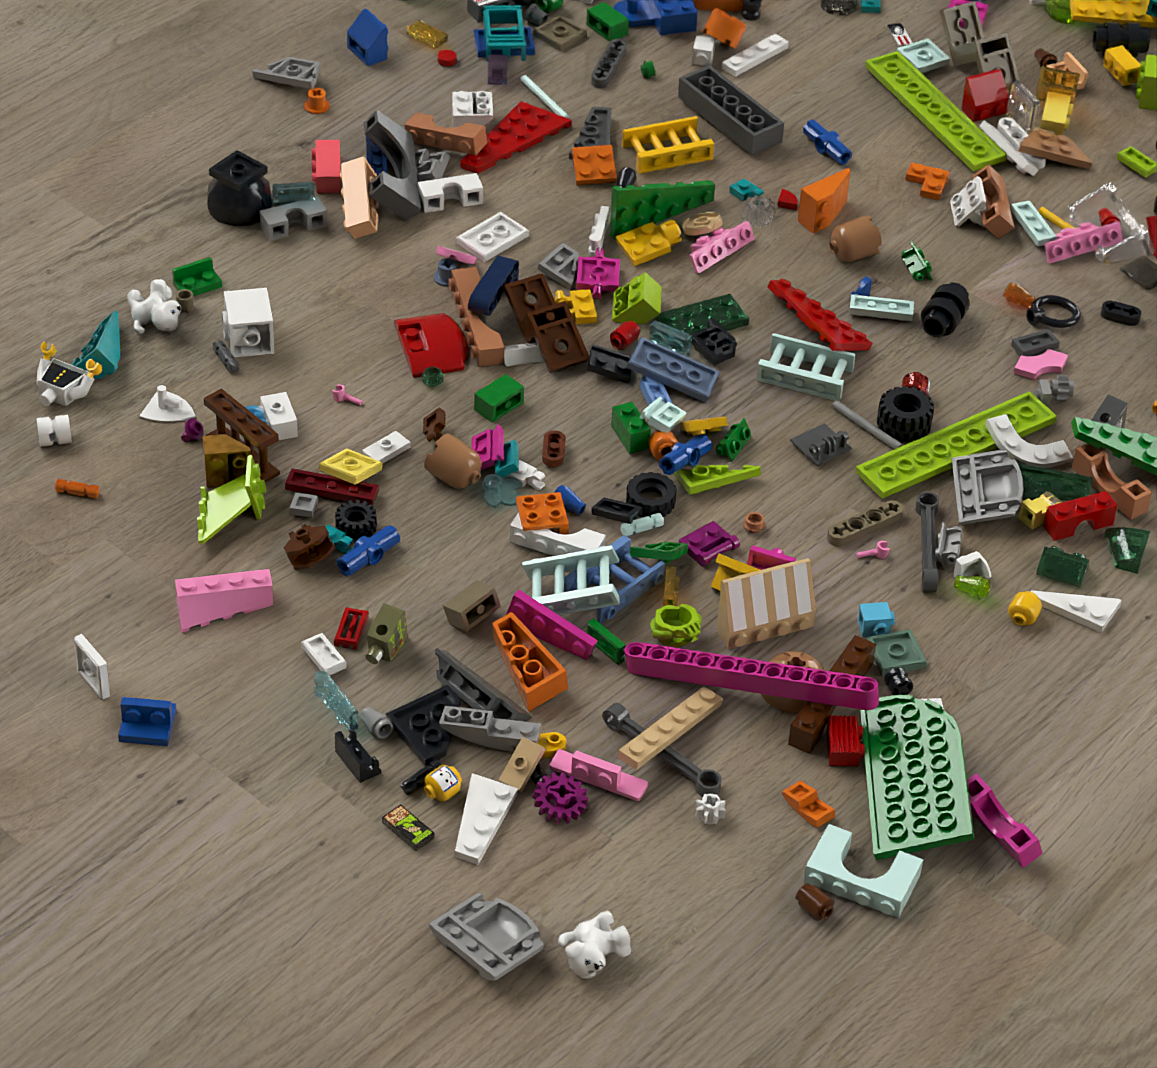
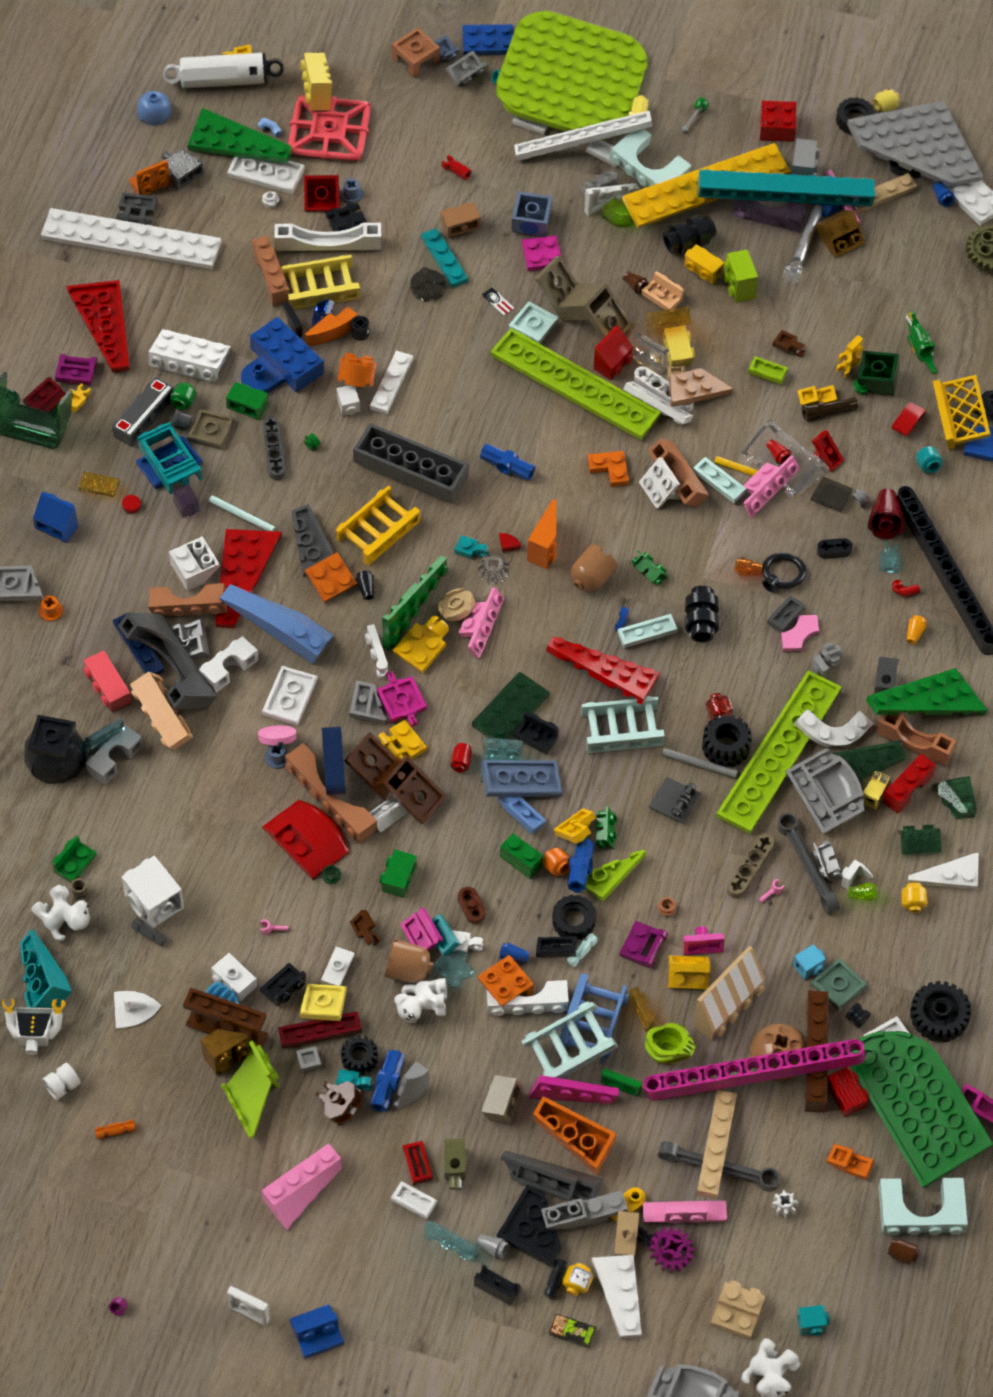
camera: 25 degrees left, 15 degrees up
(193, 430) = (171, 1024): magenta plate -> none
(323, 440) = (284, 984): none -> black bracket
(388, 560) = (412, 1086): none -> light grey slope
(452, 497) = (429, 996): none -> white animal
(524, 181) = (282, 623): none -> medium blue wedge
(598, 880) = (738, 1309): none -> tan plate
(609, 363) = (466, 794): black plate -> none
(637, 300) = (451, 716): lime slope -> none
(662, 551) = (617, 973): green wing -> none
(663, 415) = (544, 835): light aqua plate -> none
(672, 921) = (812, 1320): none -> teal brick
(993, 714) = (937, 1024): none -> black wheel

